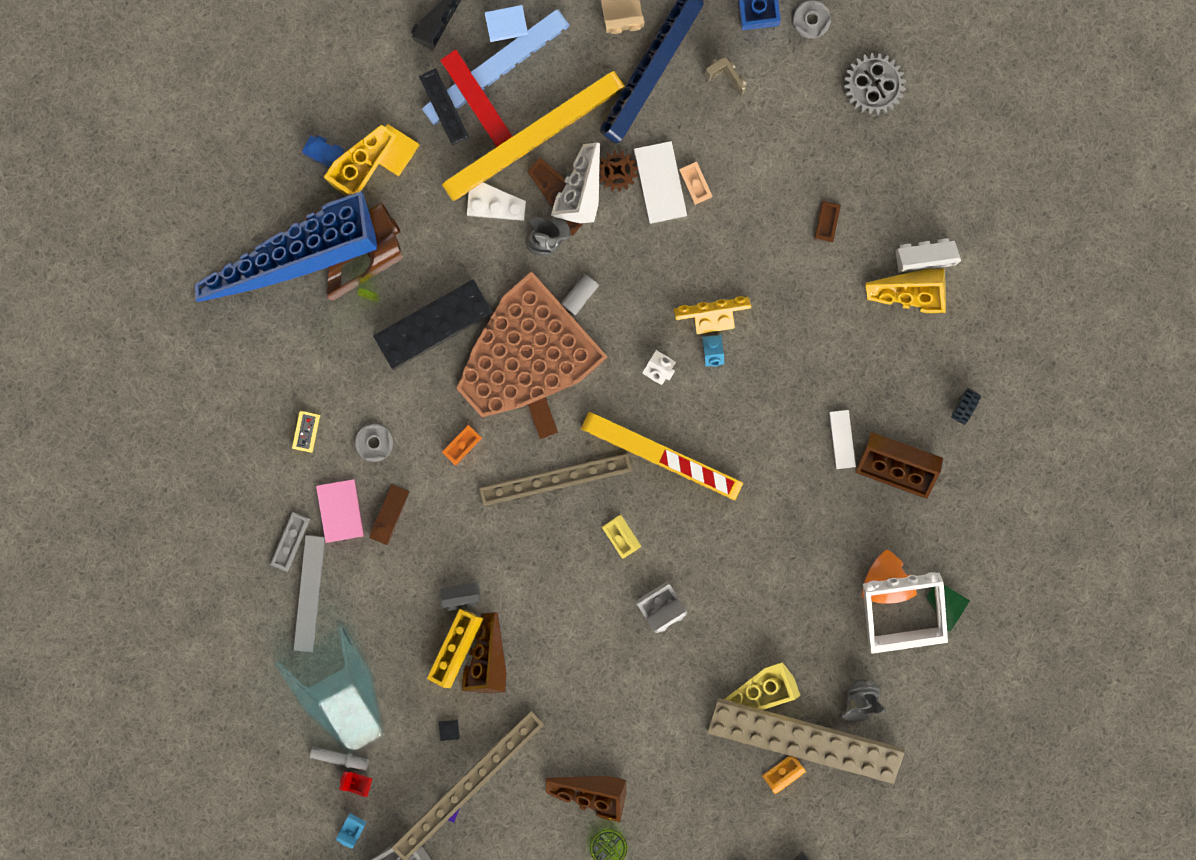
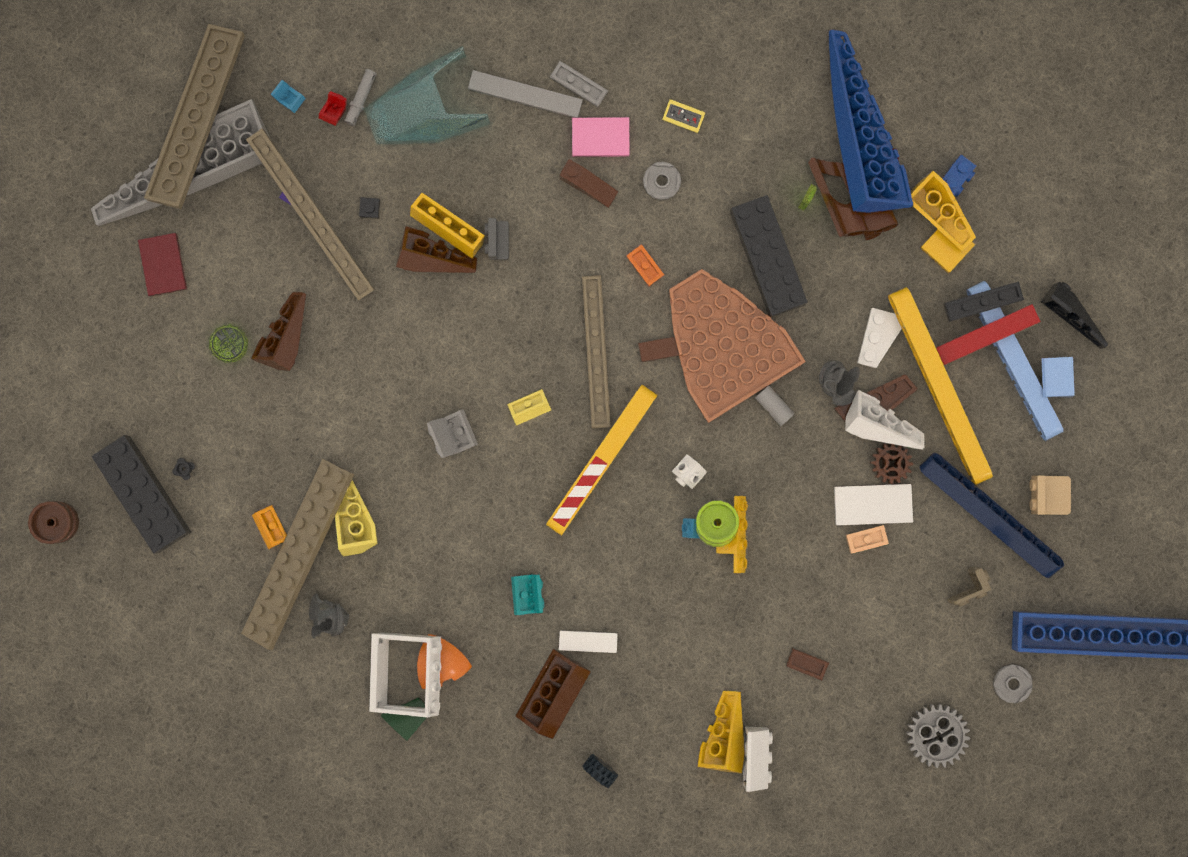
camera: 105 degrees right, 0 degrees up
(717, 328) = (717, 535): none -> lime wheel
(806, 506) = (527, 594): none -> teal bracket

